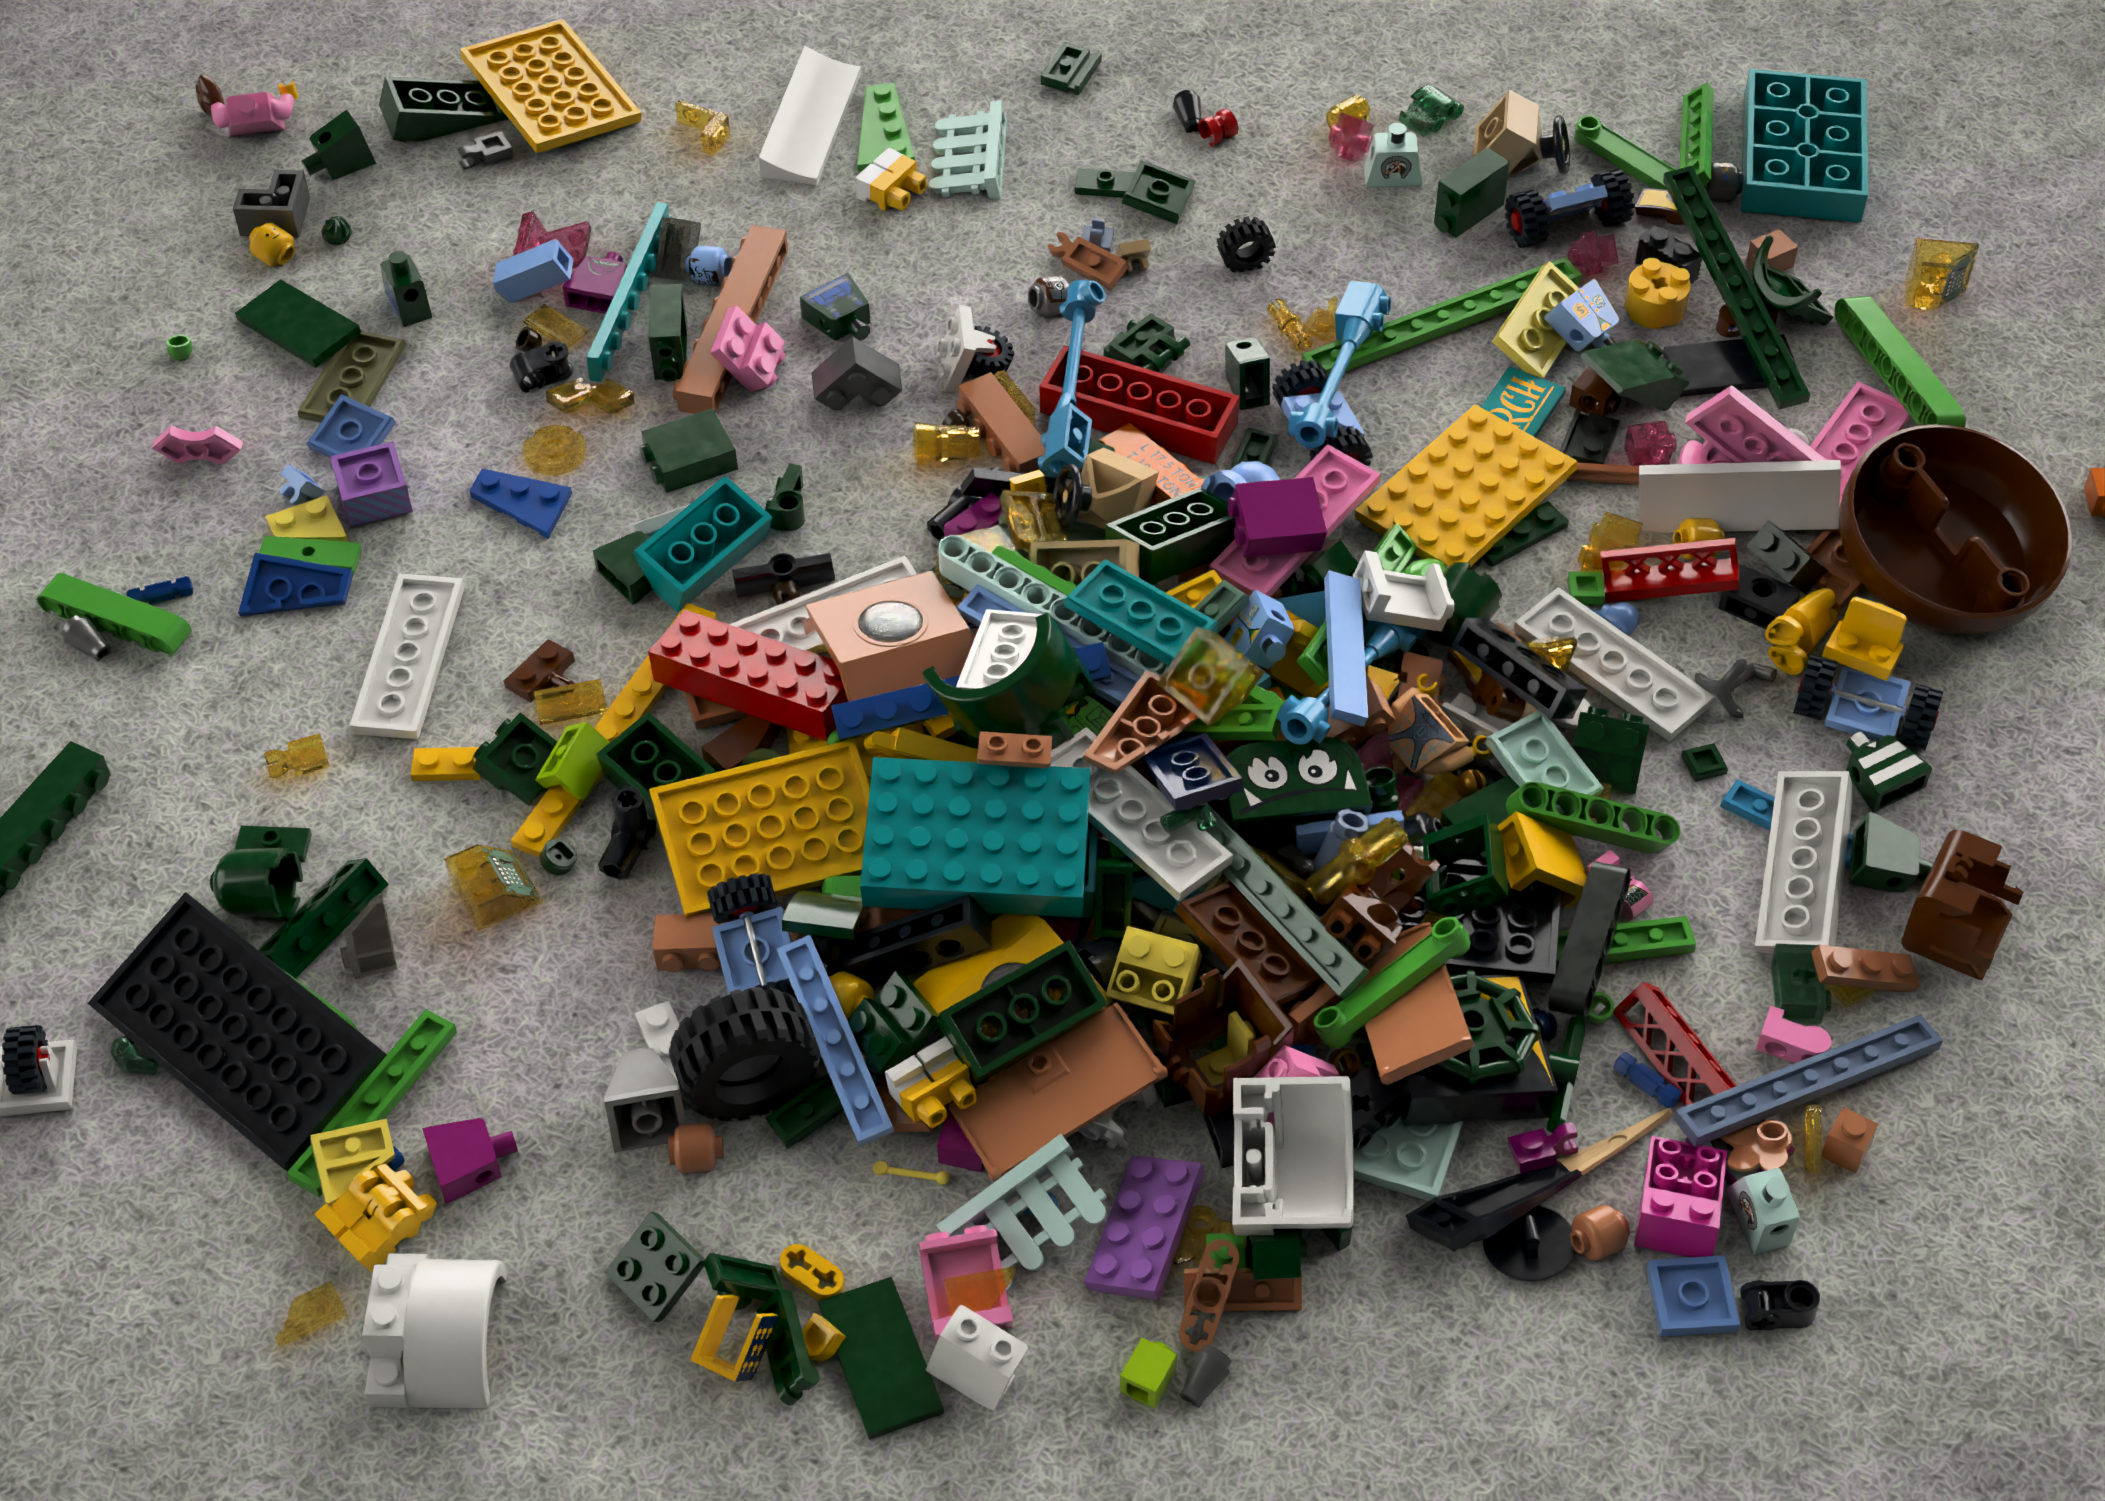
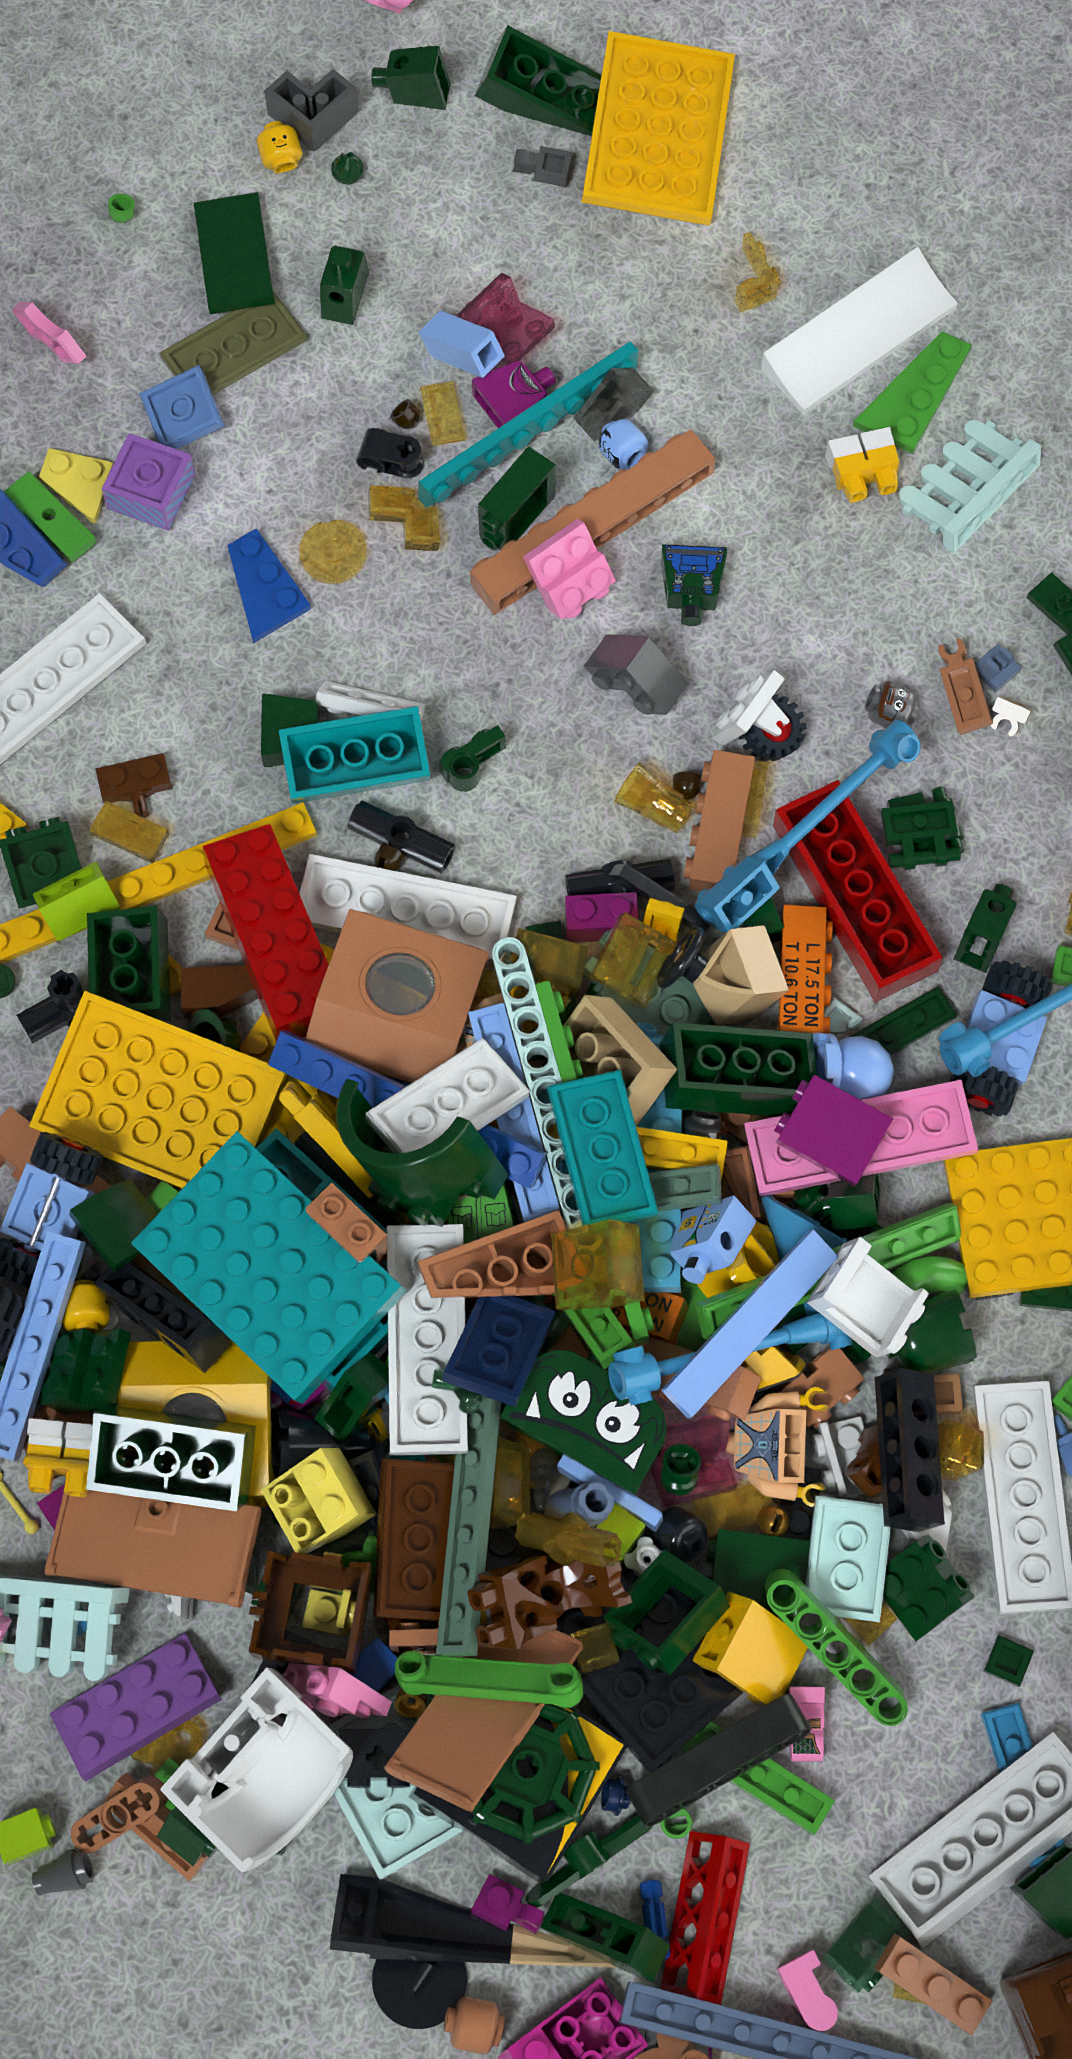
camera: 40 degrees right, 20 degrees up
(299, 484) = (100, 436): light blue tile -> none
(688, 450) = (434, 640): dark green brick -> none
(1630, 1104) = (606, 1936): none -> dark green slope

